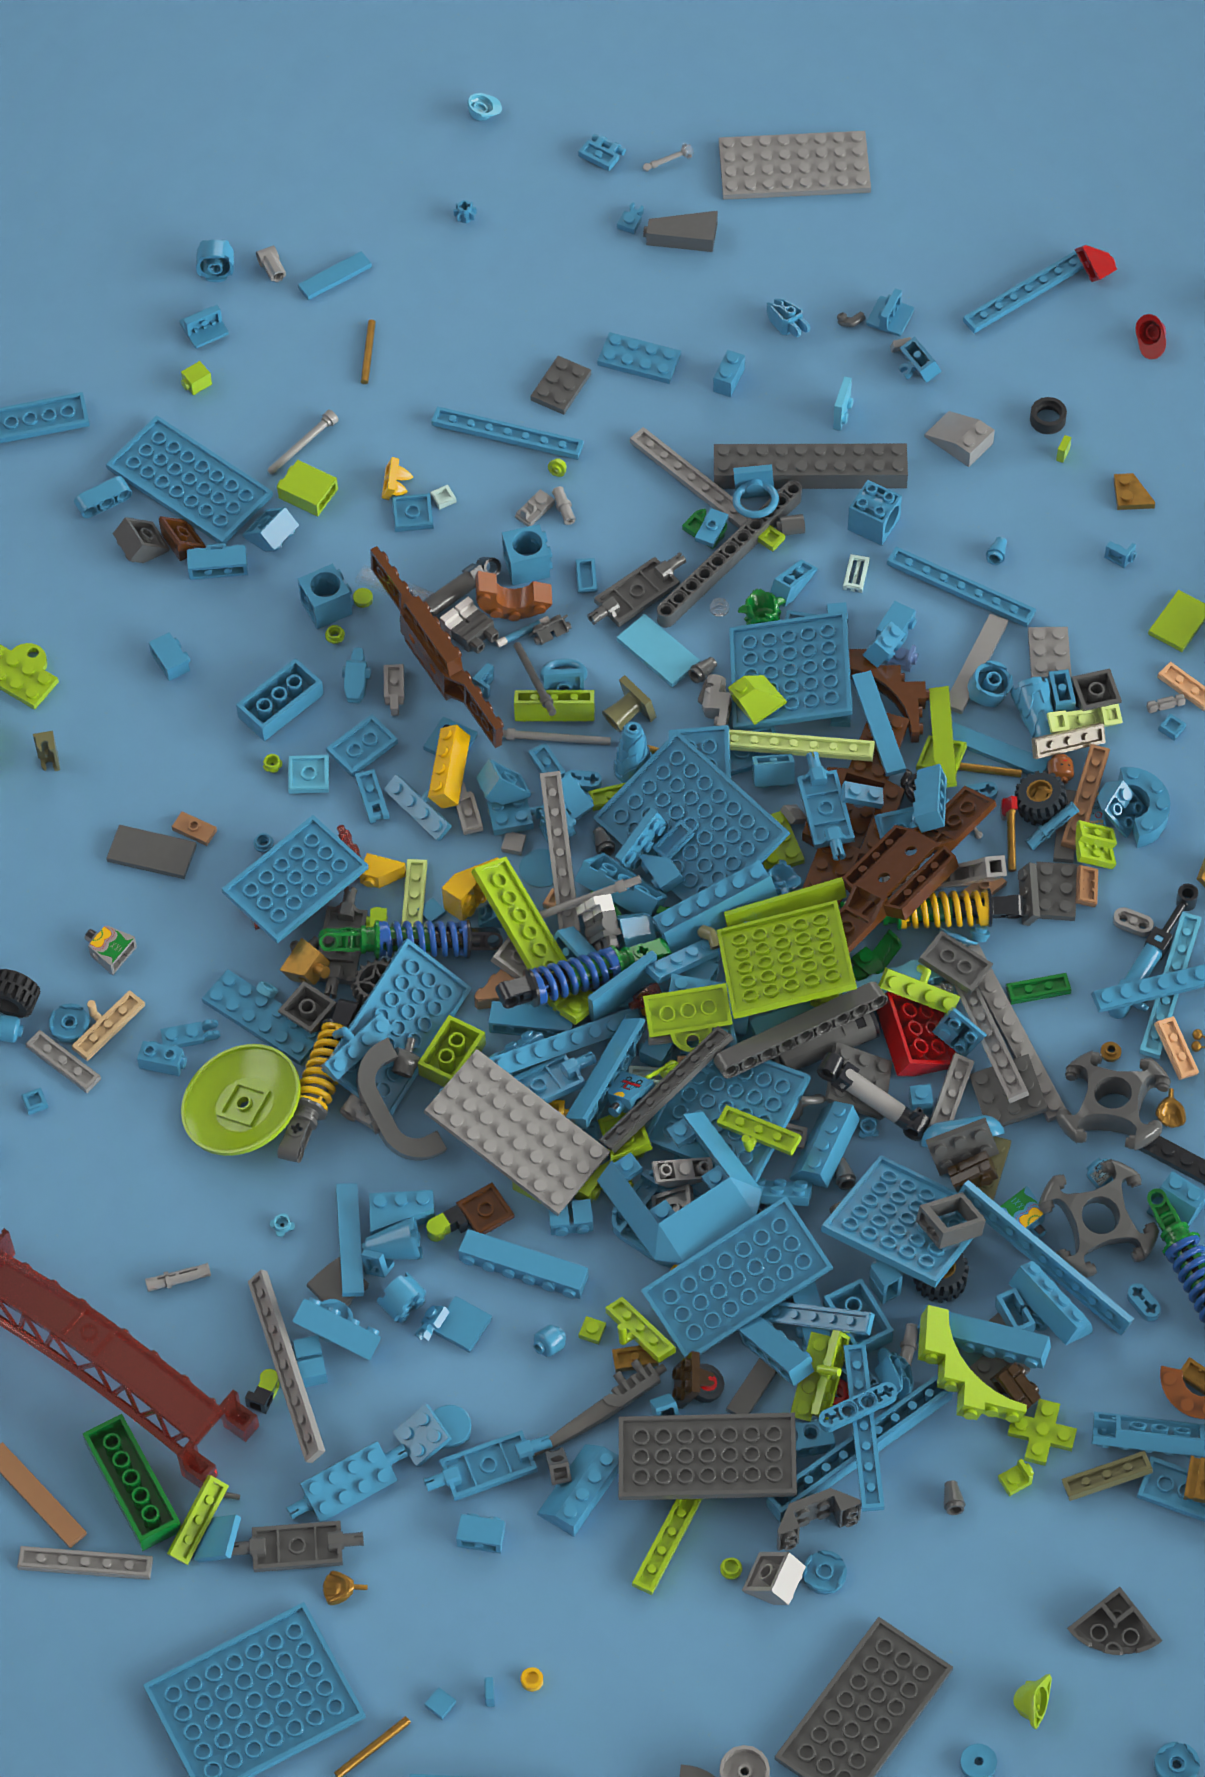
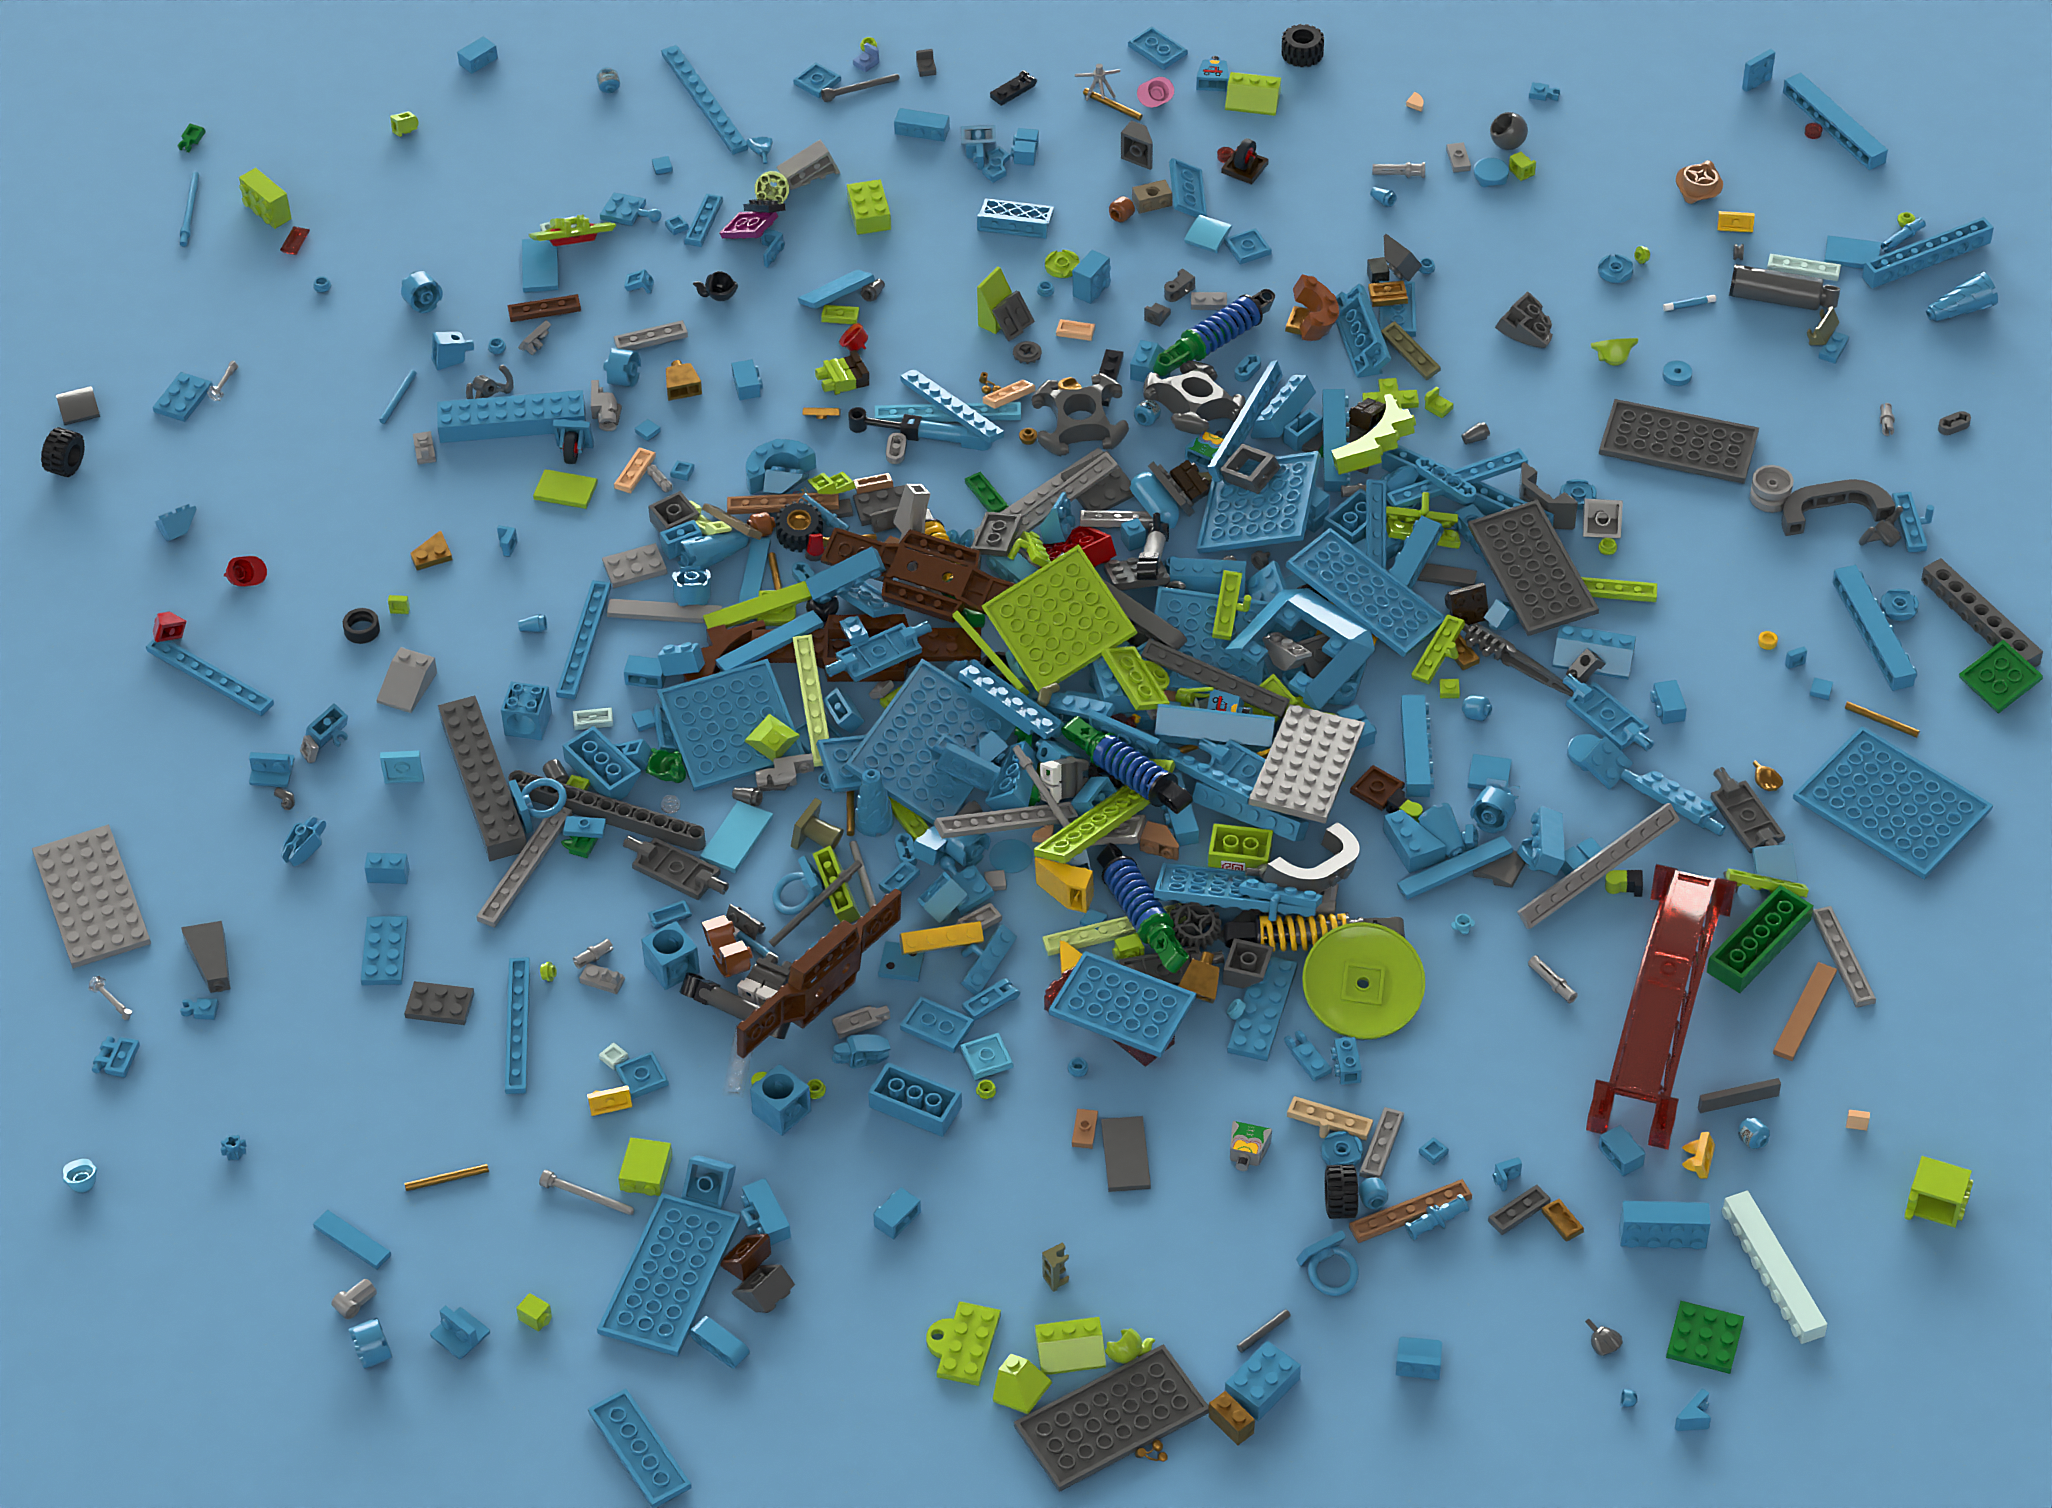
camera: 110 degrees left, 10 degrees down
(781, 554) = (601, 763): none -> dark azure slope

